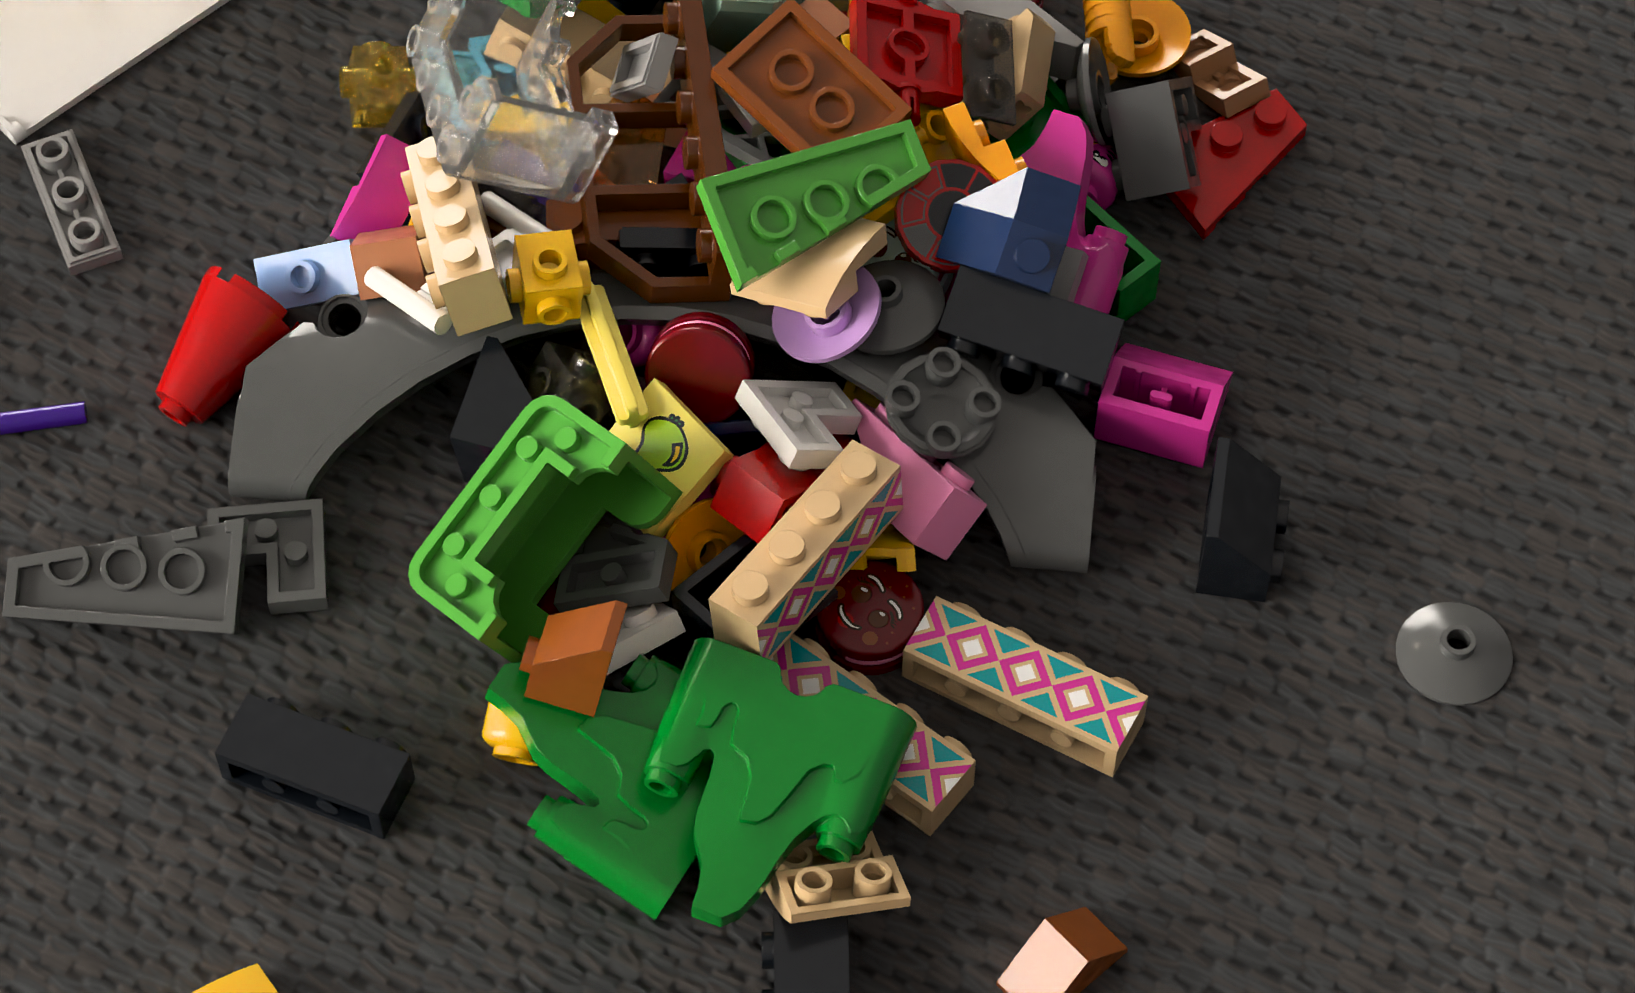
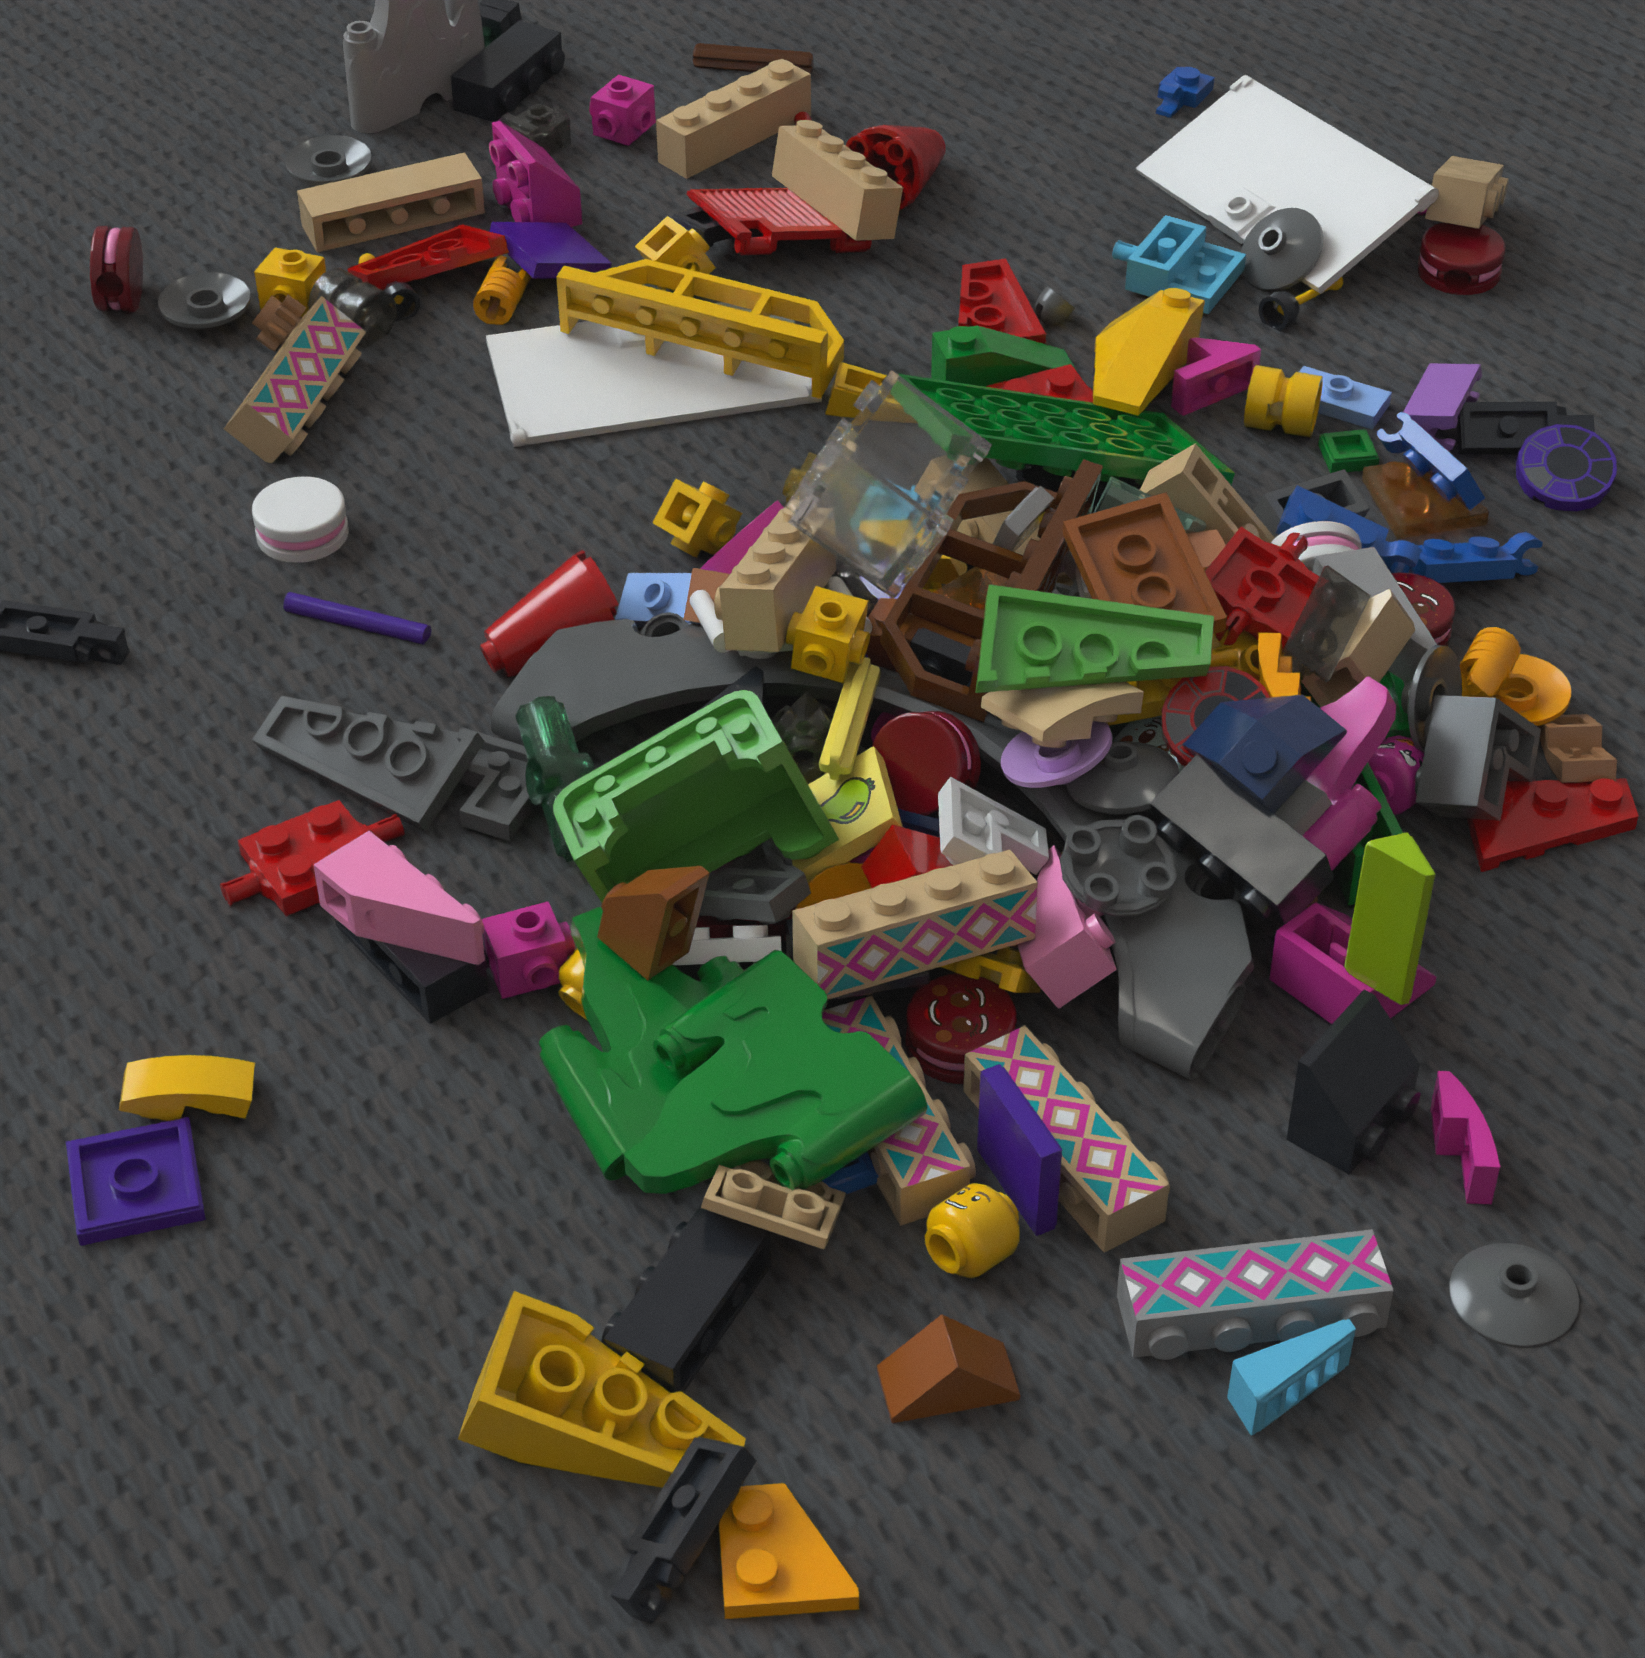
camera: 30 degrees right, 15 degrees down
(71, 202) = (524, 495): light grey tile -> none
(152, 718) = (285, 855): none -> red plate
(263, 168) = (697, 517): none -> yellow brick
(297, 745) = (393, 902): none -> bright pink slope
(345, 525) = (551, 759): none -> clear green piece
(438, 724) = (526, 948): none -> dark pink brick
(1006, 723) = (1019, 1149): none -> dark purple tile
(1006, 817) = (972, 1230): none -> yellow head
(1223, 365) = (1390, 916): none -> lime slope
(1264, 763) = (1252, 1293): none -> light grey brick
(1324, 835) = (1284, 1374): none -> medium azure slope
(1336, 516) = (1463, 1131): none -> dark pink slope

